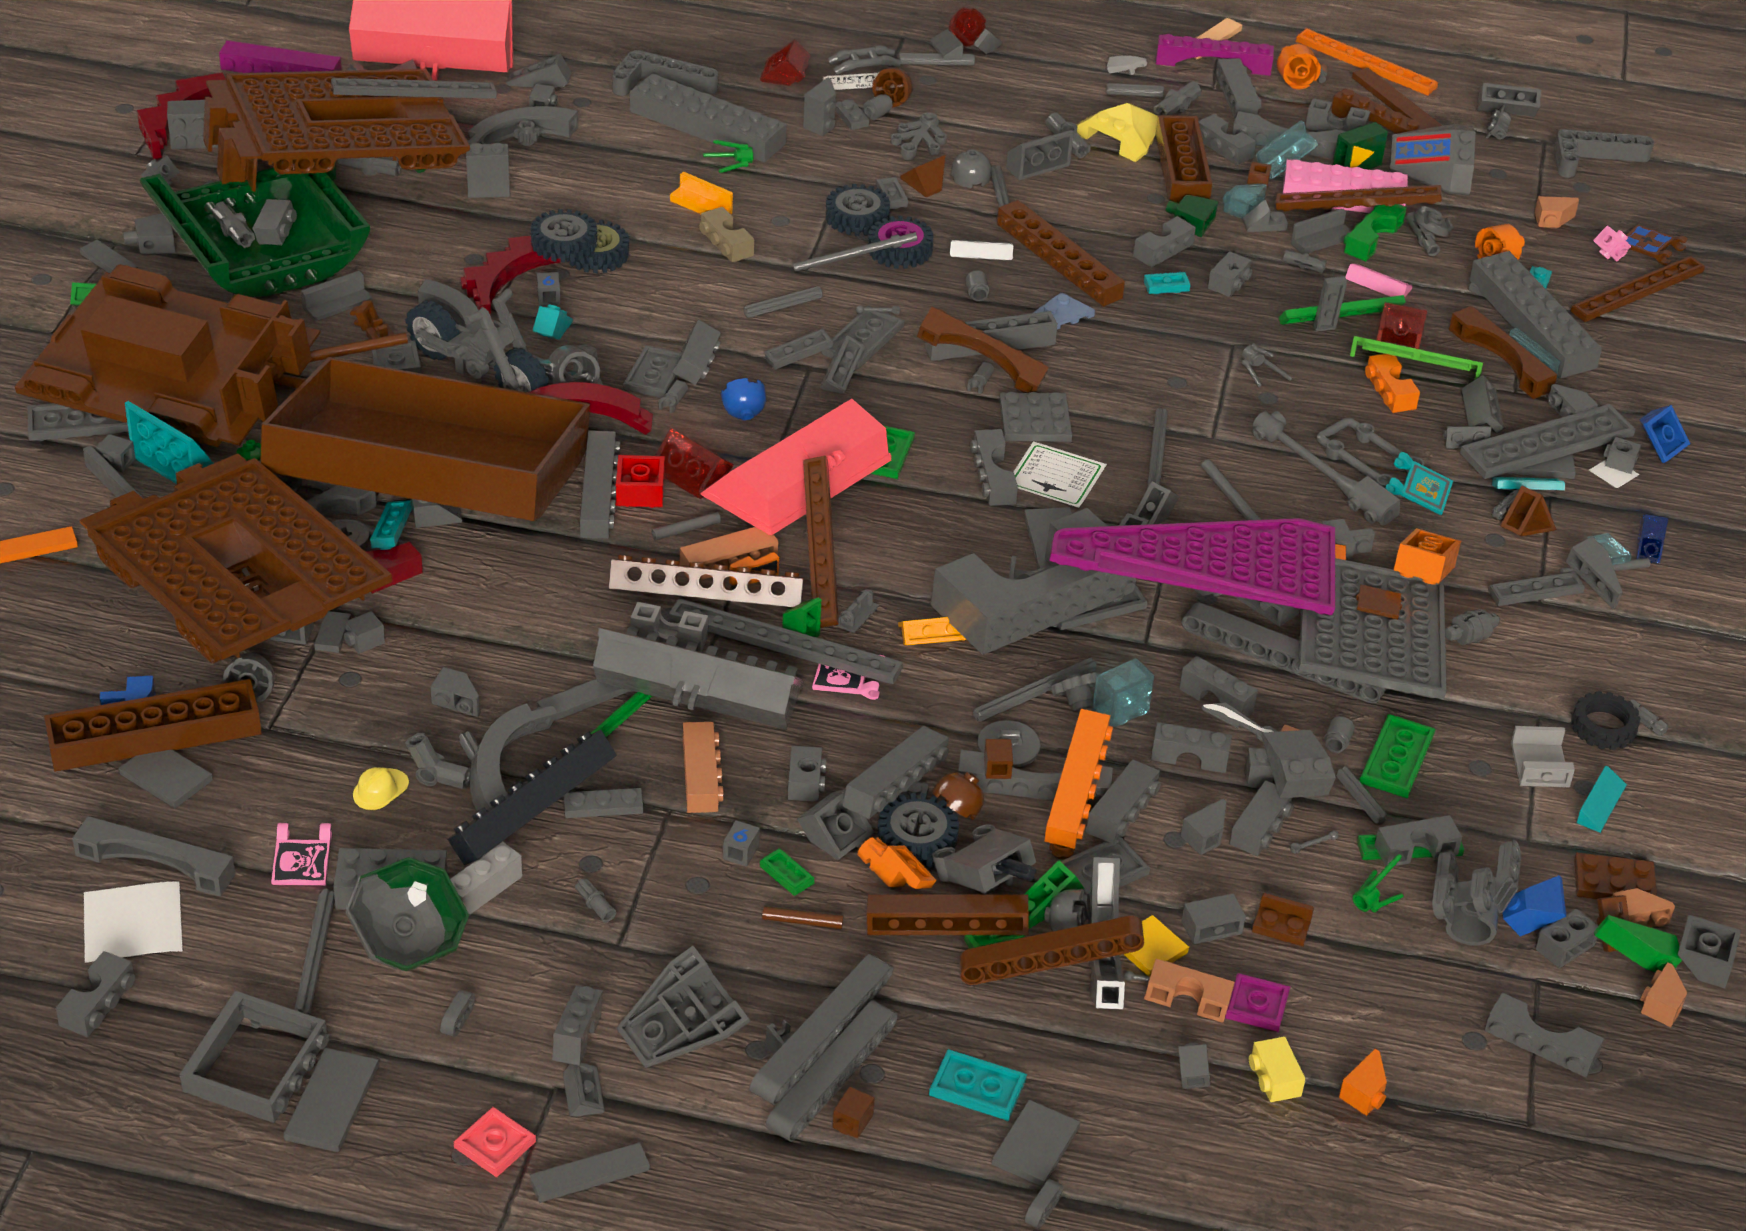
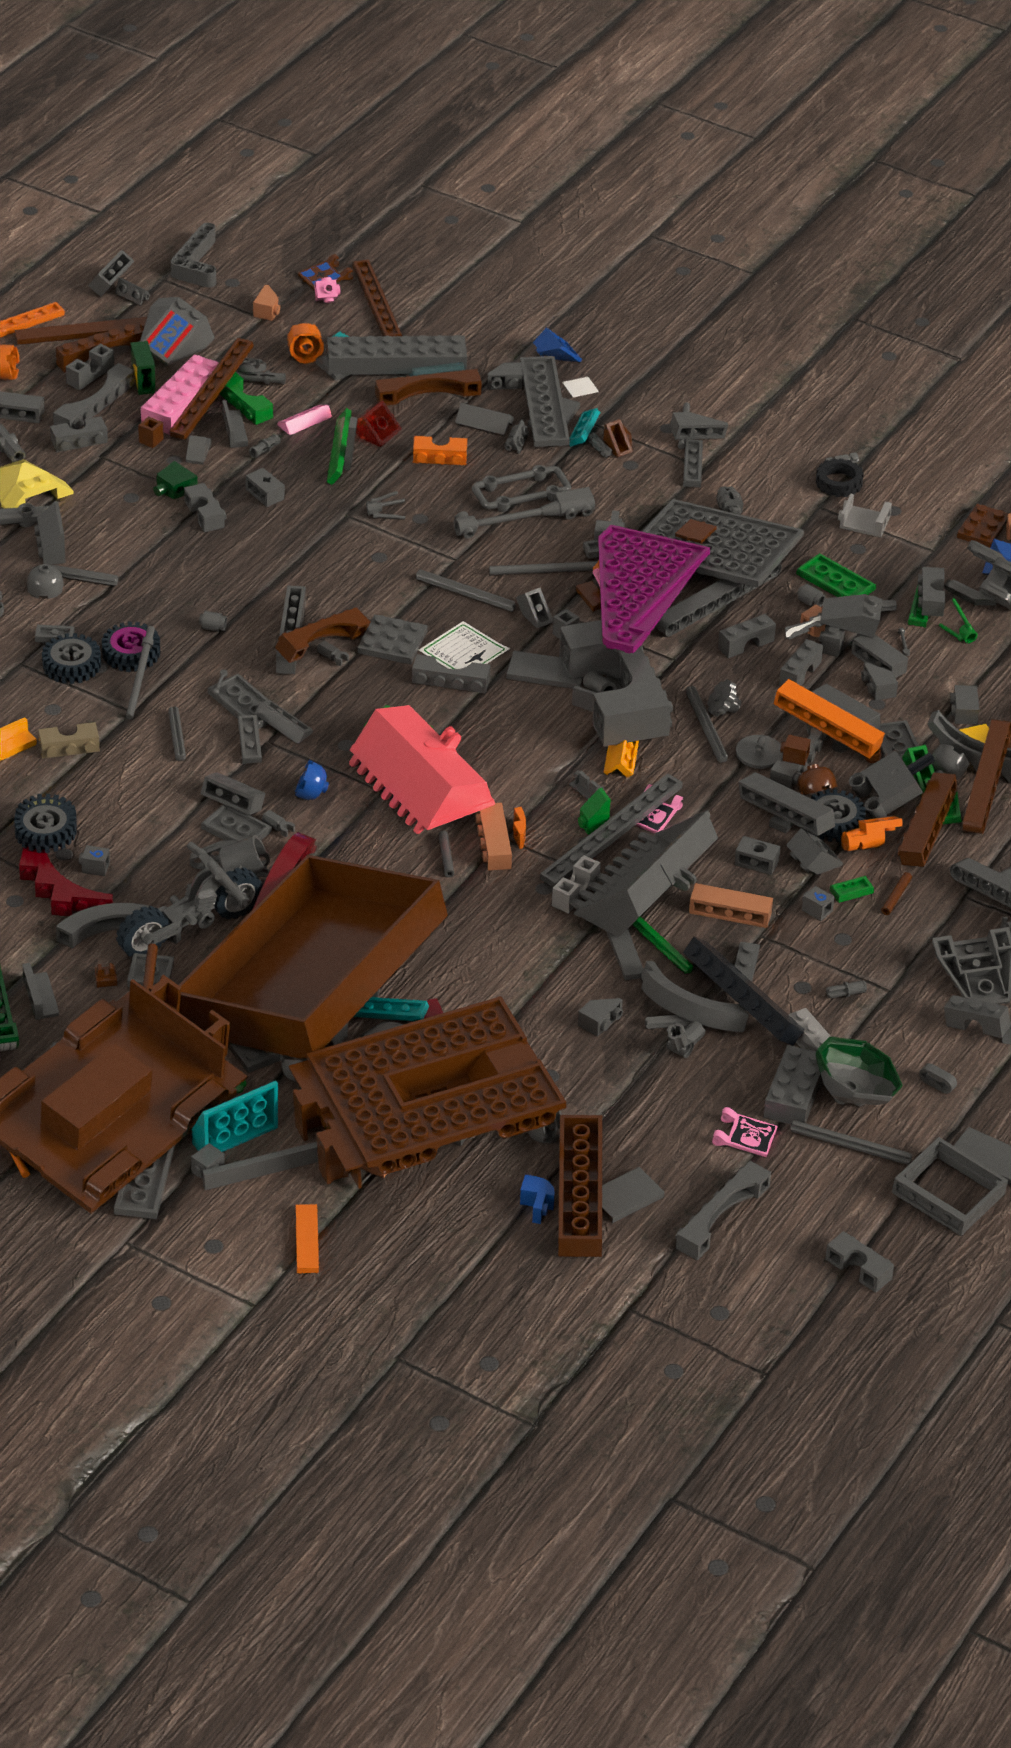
camera: 70 degrees left, 0 degrees up
(132, 920) = (780, 1238): white sticker -> none
(365, 315) = (79, 978): reddish brown tile -> none
(379, 787) = (685, 1079): light yellow piece -> none
(551, 322) = (148, 867): teal slope -> none
(621, 579) = (531, 853): brick -> none
(640, 481) = (393, 855): red brick -> none
(691, 463) = (376, 832): clear red slope -> none
(821, 538) = (519, 772): reddish brown tile -> none
(926, 178) = (40, 609): reddish brown slope -> none
(981, 249) = (156, 607): slope -> none
(1061, 253) = (190, 565): reddish brown brick -> none
(1066, 309) = (266, 592): sand blue wing -> none
(1123, 692) = (743, 672): clear light blue brick -> none
(1167, 283) = (258, 522): teal plate -> none
(1183, 157) = (101, 462): reddish brown brick -> none
(1243, 199) = (170, 449): clear light blue slope -> none
(1283, 919) = (975, 674): reddish brown bracket -> none
(1288, 146) = (122, 407): clear light blue panel -> none
(1416, 354) = (415, 428): bright green slope -> none
(1421, 485) = (567, 472): teal flag -> none
(1427, 556) = (657, 493): orange brick -> none
(1601, 800) = (911, 507): teal slope -> none
(1616, 551) = (664, 416): clear light blue tile -> none
(1622, 455) = (573, 373): dark grey brick -> none
(1651, 538) = (667, 392): clear blue slope -> none

